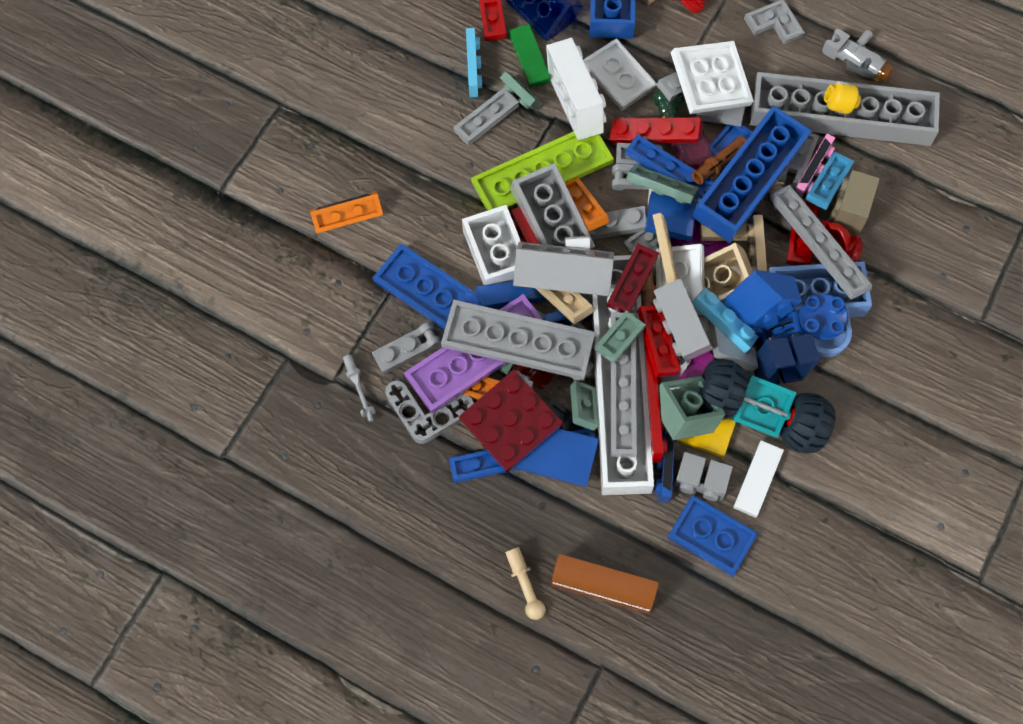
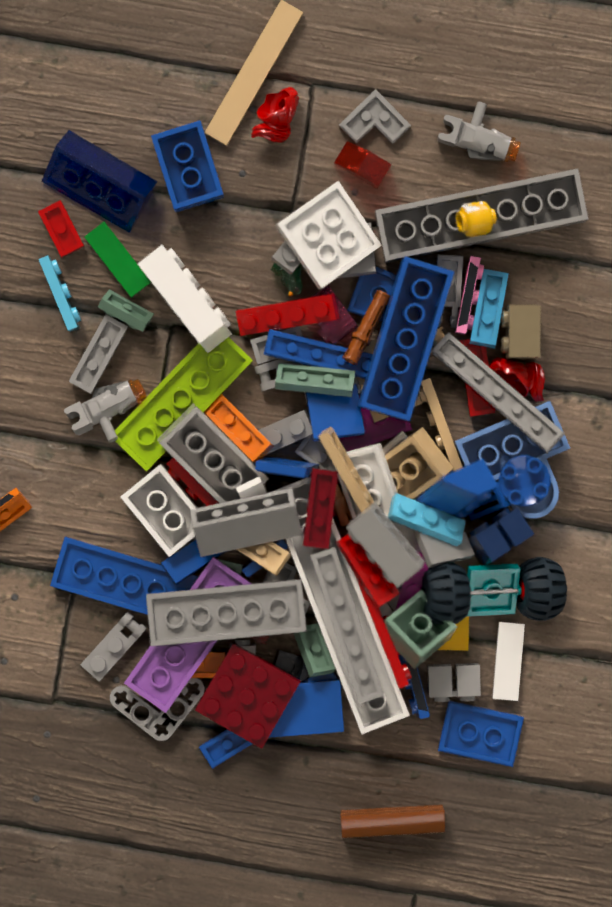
camera: 25 degrees left, 20 degrees up
(354, 374) = (71, 693): light grey piece -> none
(475, 155) = (105, 404): none -> light grey piece
(535, 608) = (333, 862): tan pin -> none
(611, 240) = (286, 467): none -> blue tile
(620, 74) = (223, 248): white tile -> none
(620, 337) = (328, 583): sand green plate -> none
(758, 48) = (363, 164): none -> clear red slope

